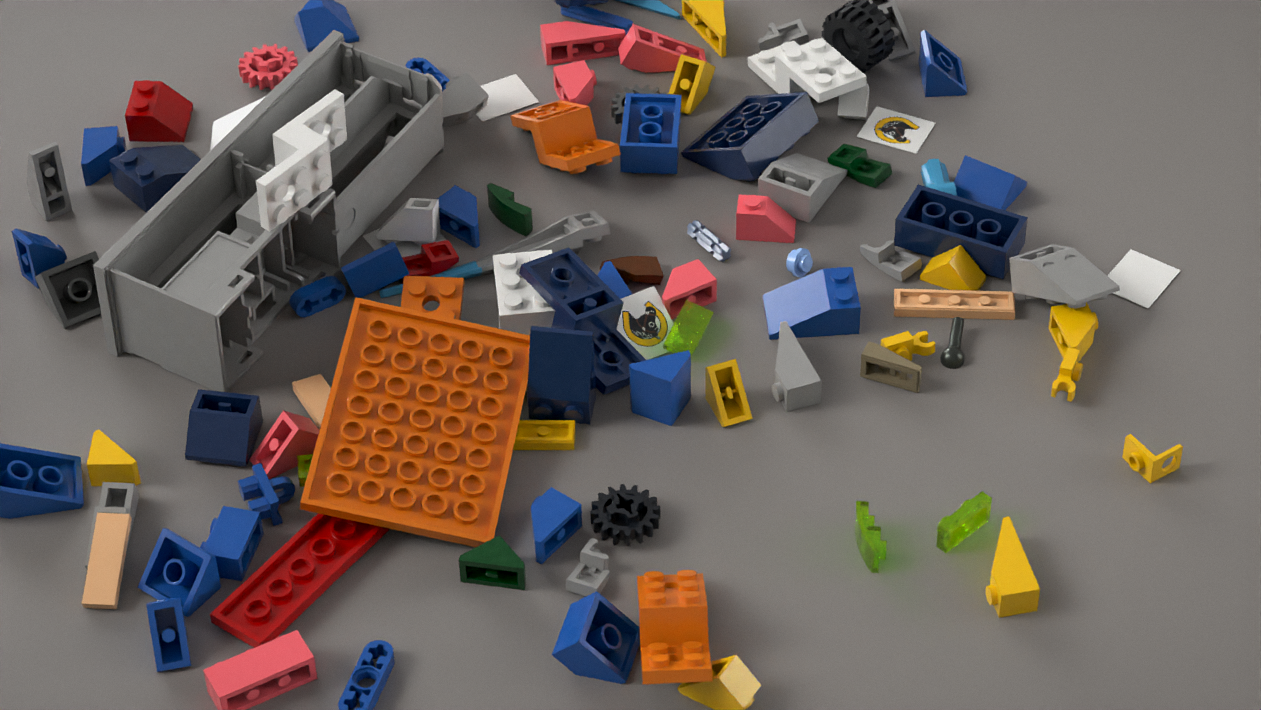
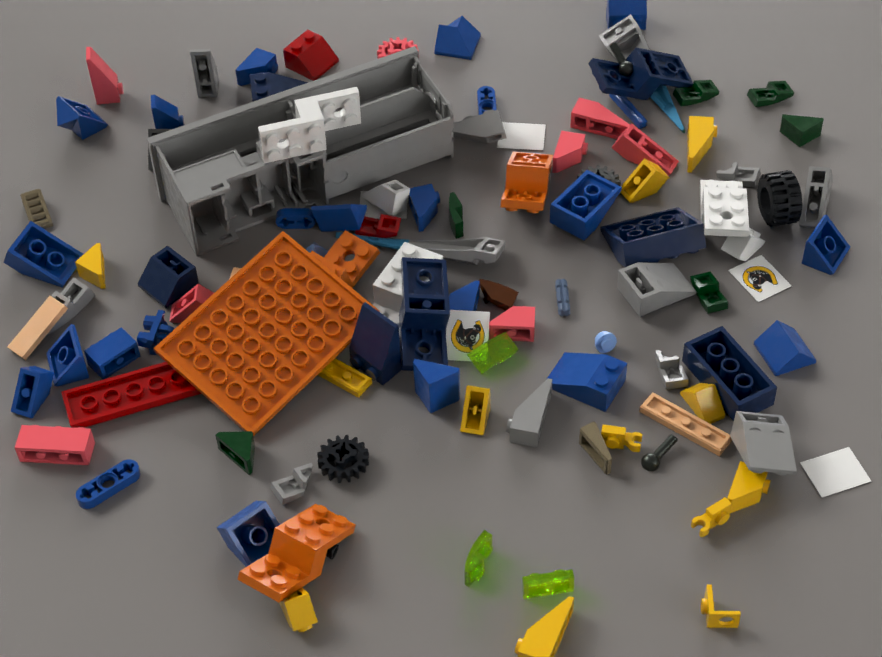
camera: 35 degrees right, 5 degrees up
(553, 522) = (294, 440): blue slope -> none
(763, 220) = (607, 300): coral slope -> none
(936, 177) = (748, 331): dark azure piece -> none

